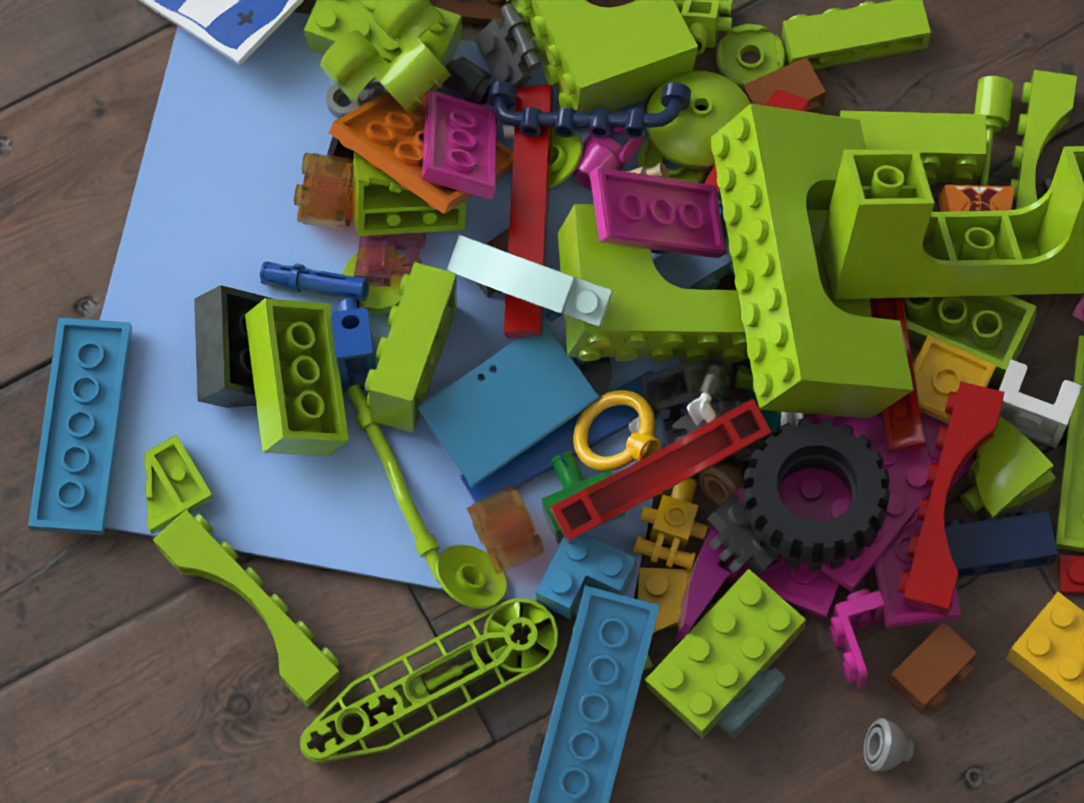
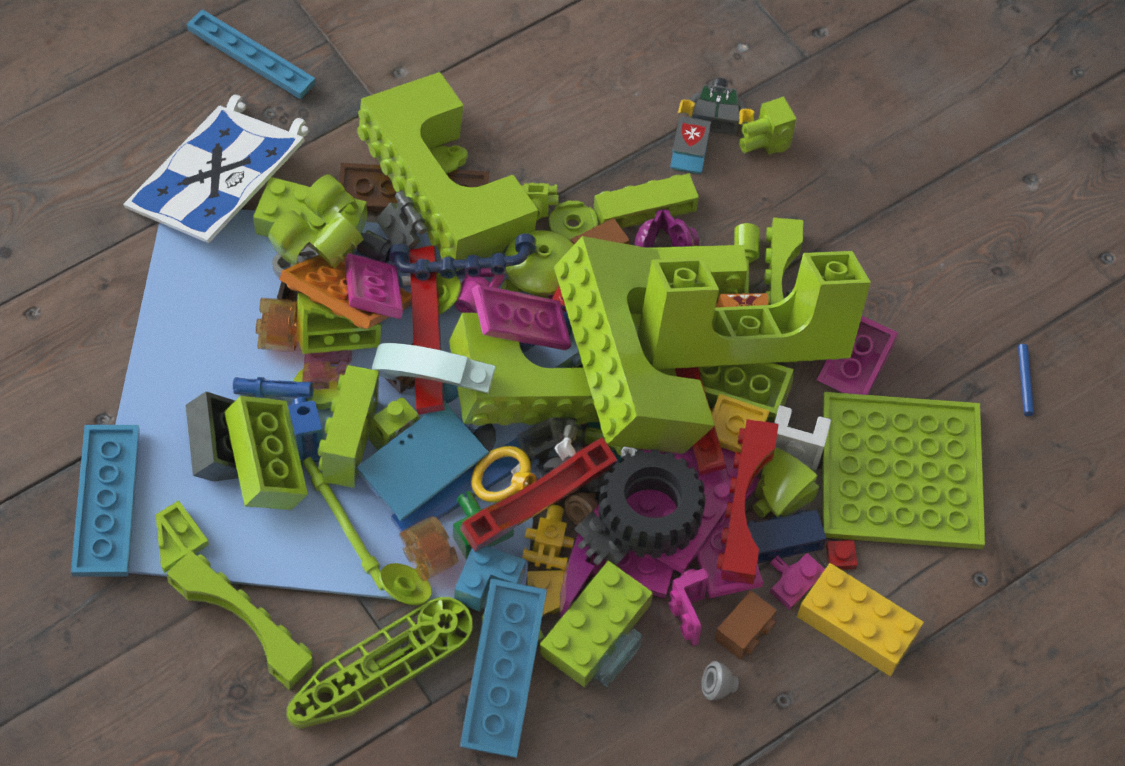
camera: 15 degrees left, 10 degrees down
(471, 346) = (391, 422): none -> lime torso
(900, 90) = (678, 231): none -> magenta animal
(1010, 606) = (795, 579): none -> dark pink plate

